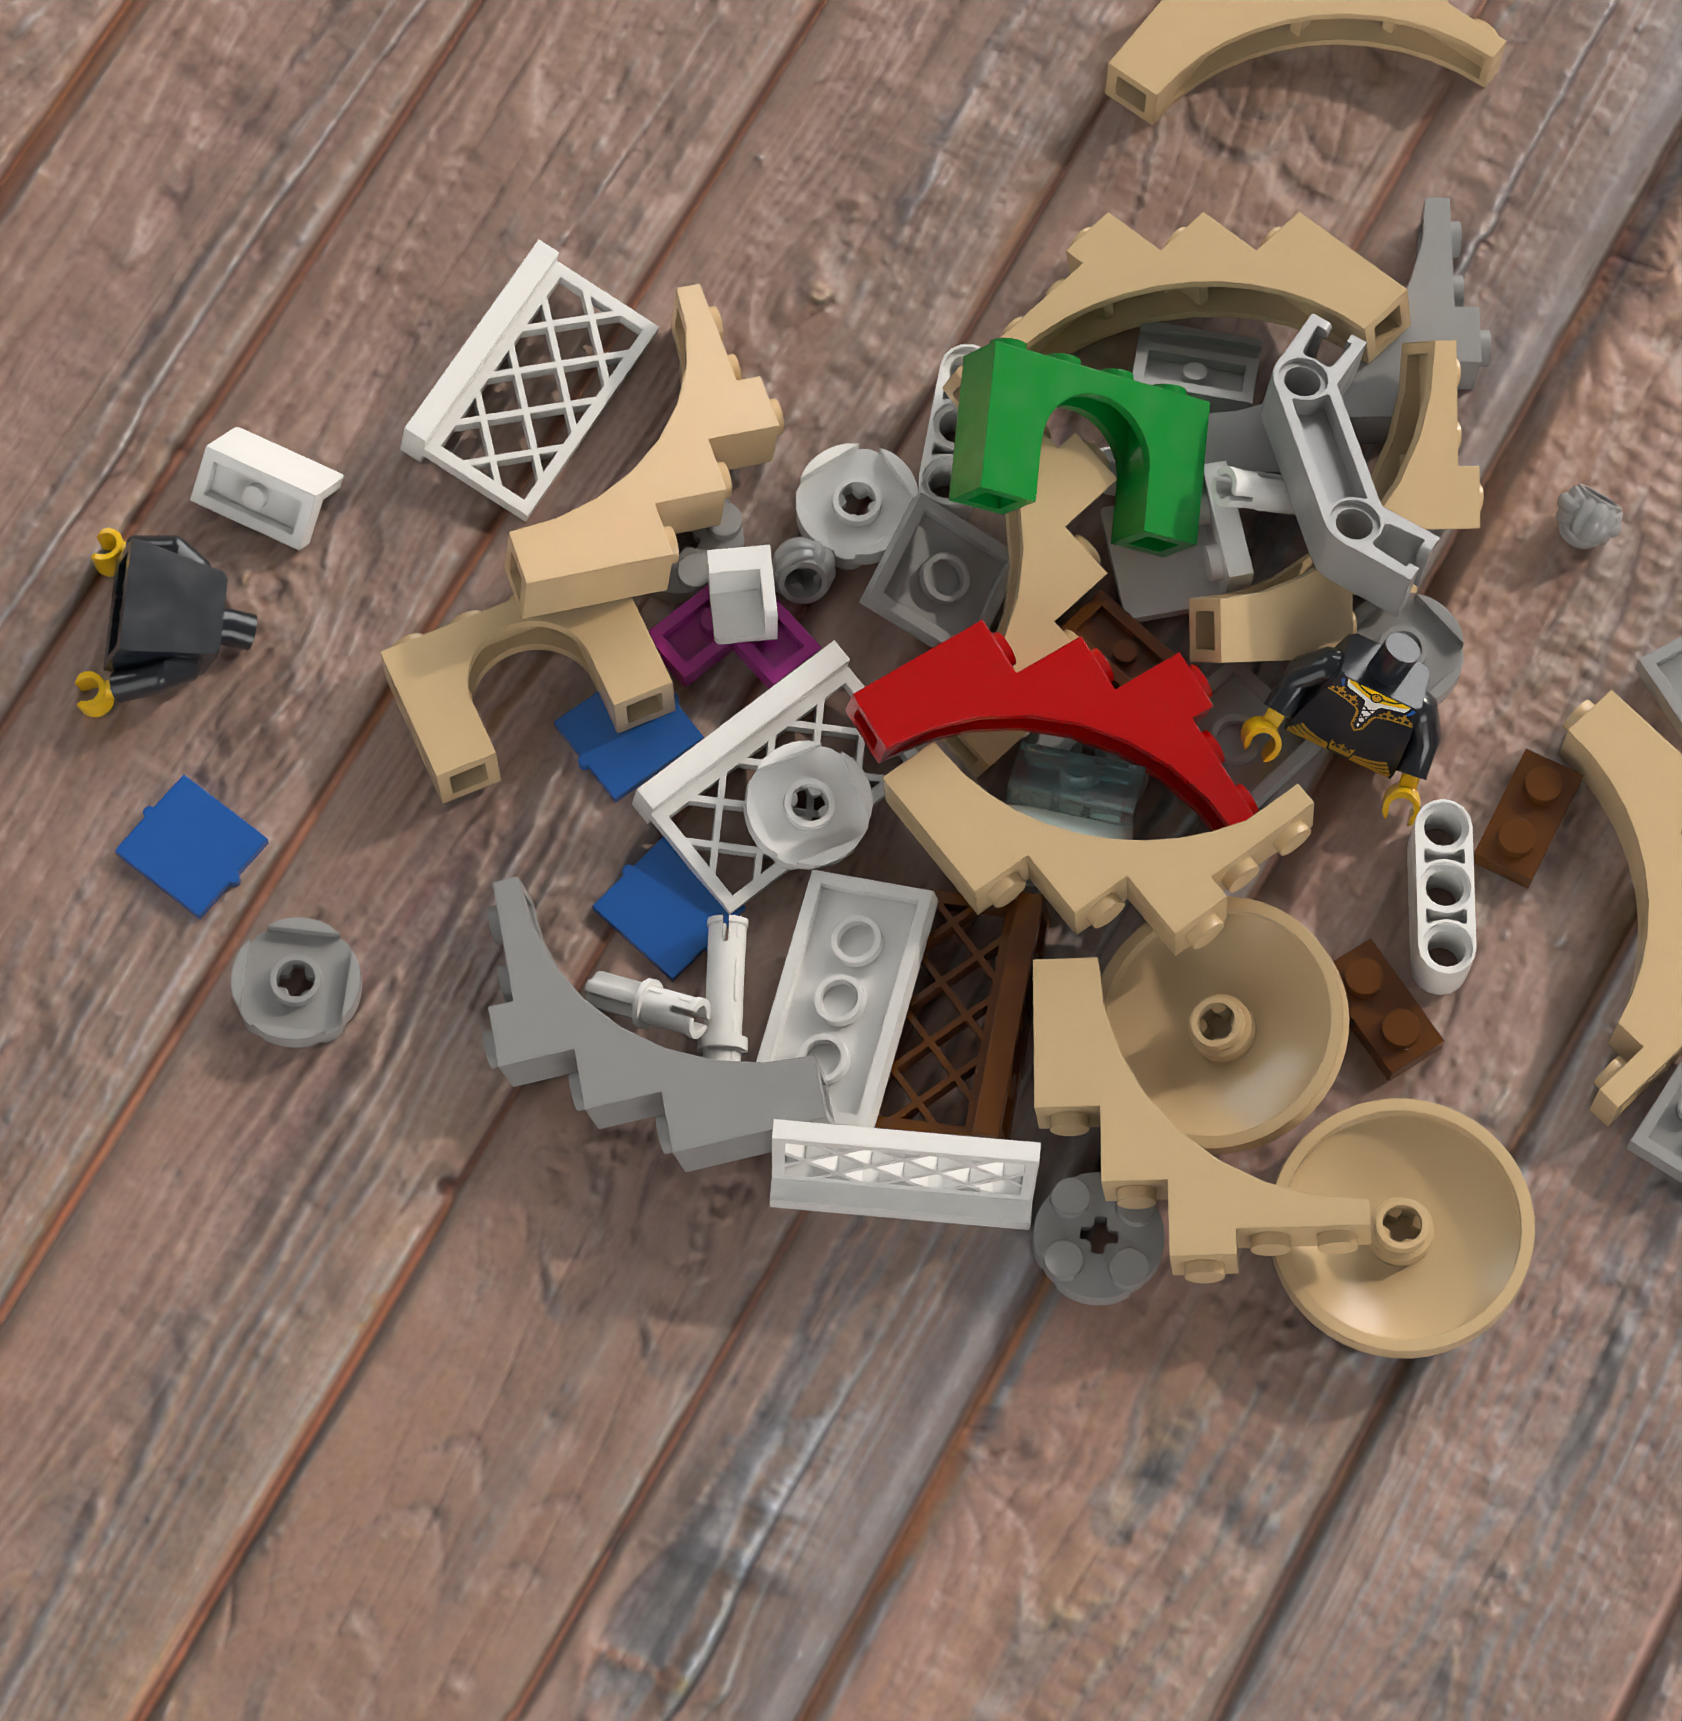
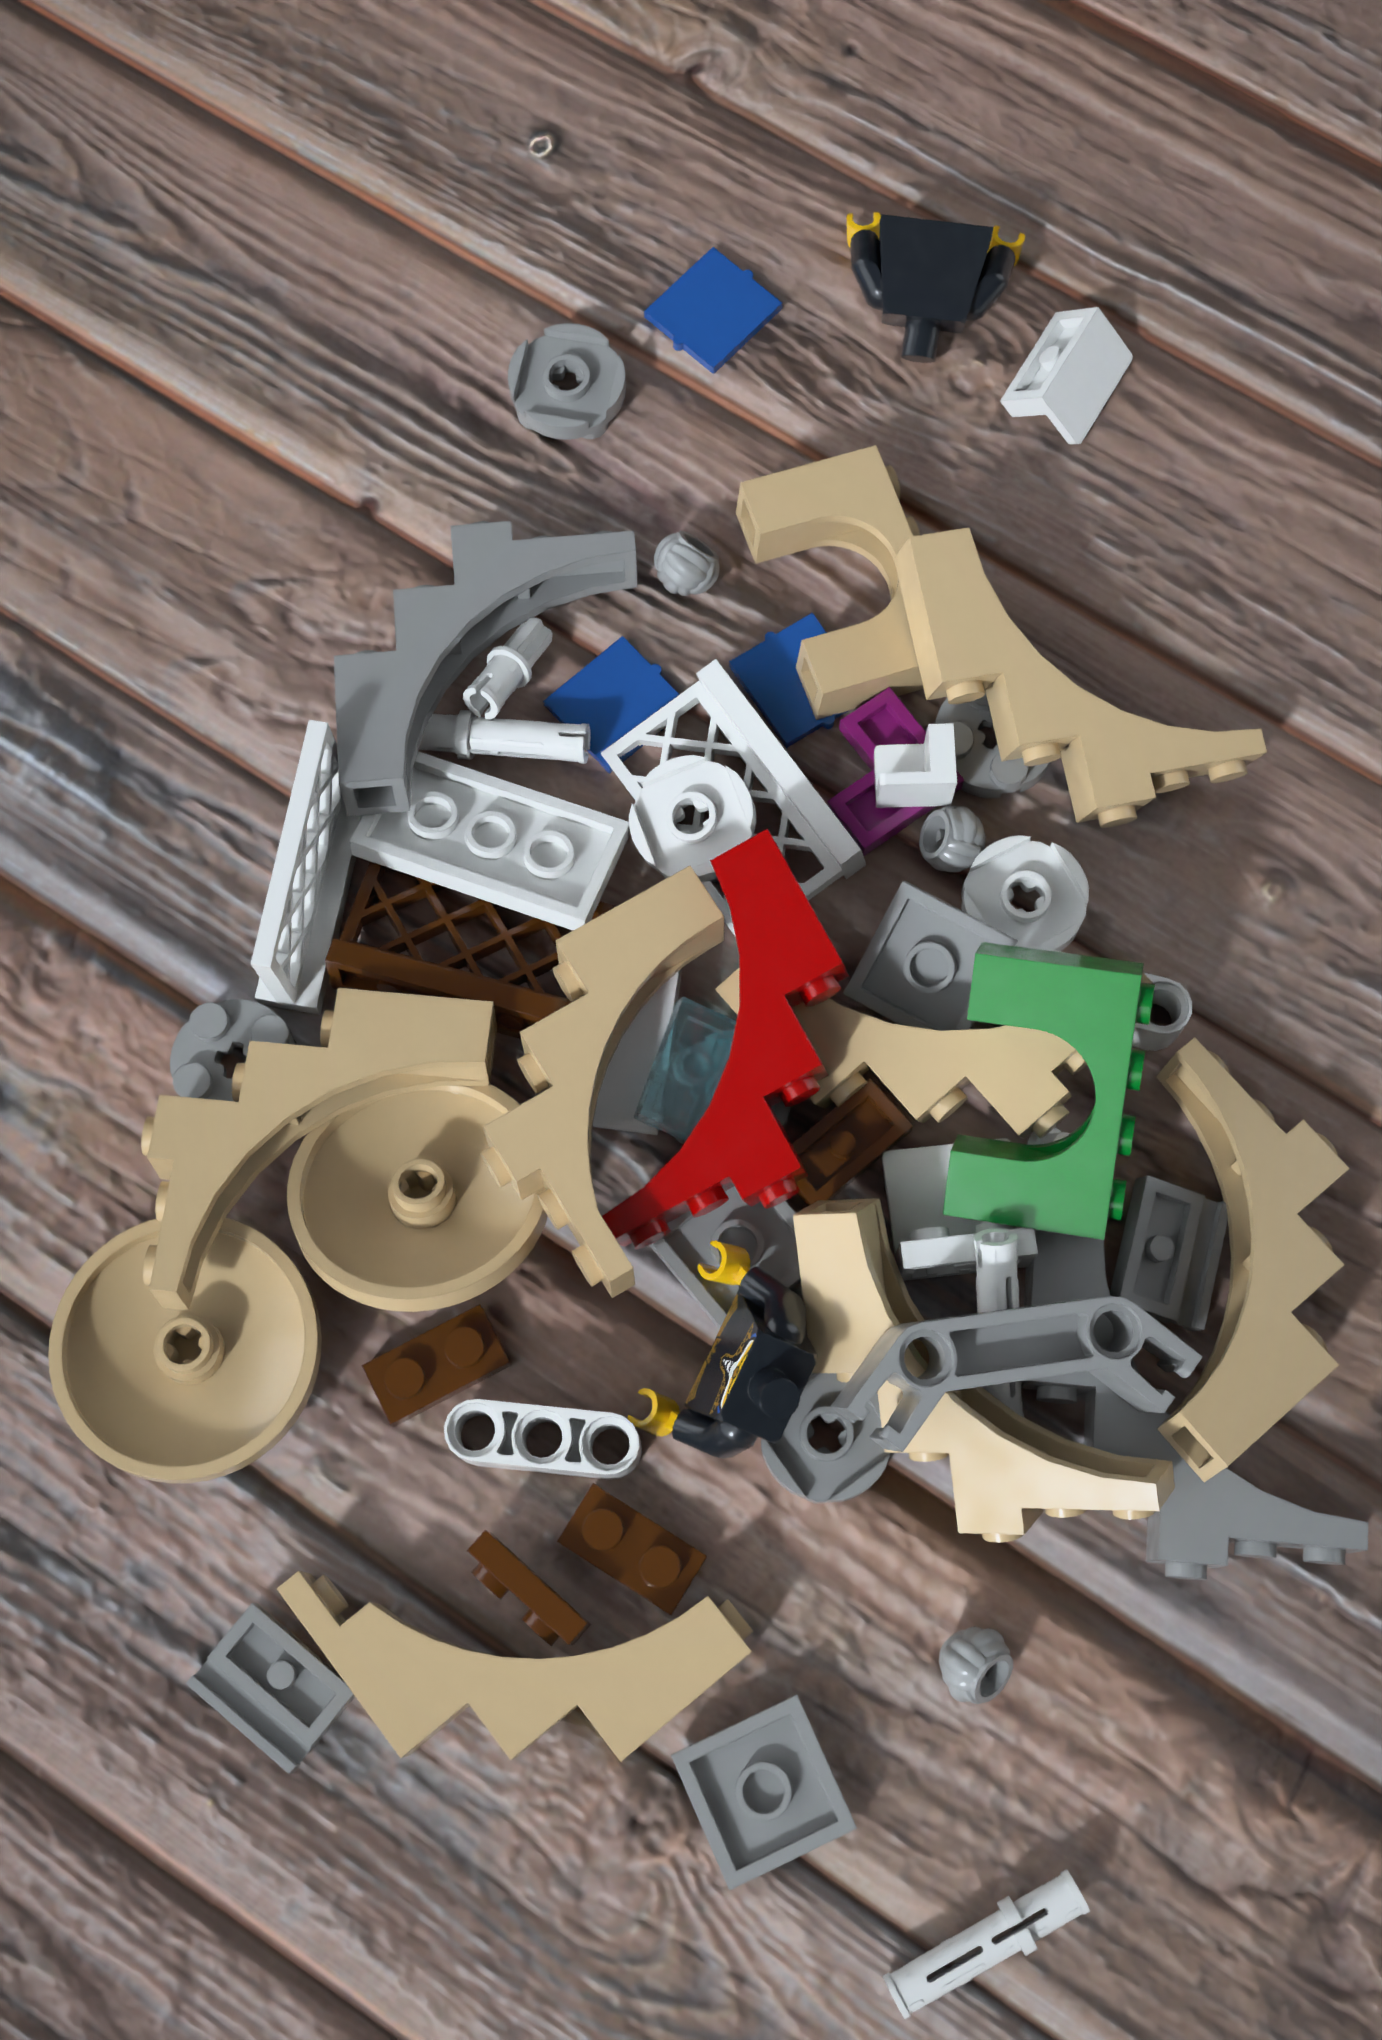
camera: 100 degrees right, 5 degrees up
(485, 352) = (1198, 559): white fence -> none
(513, 841) = (686, 564): none -> light grey piece
(1567, 919) = (504, 1571): none -> reddish brown plate

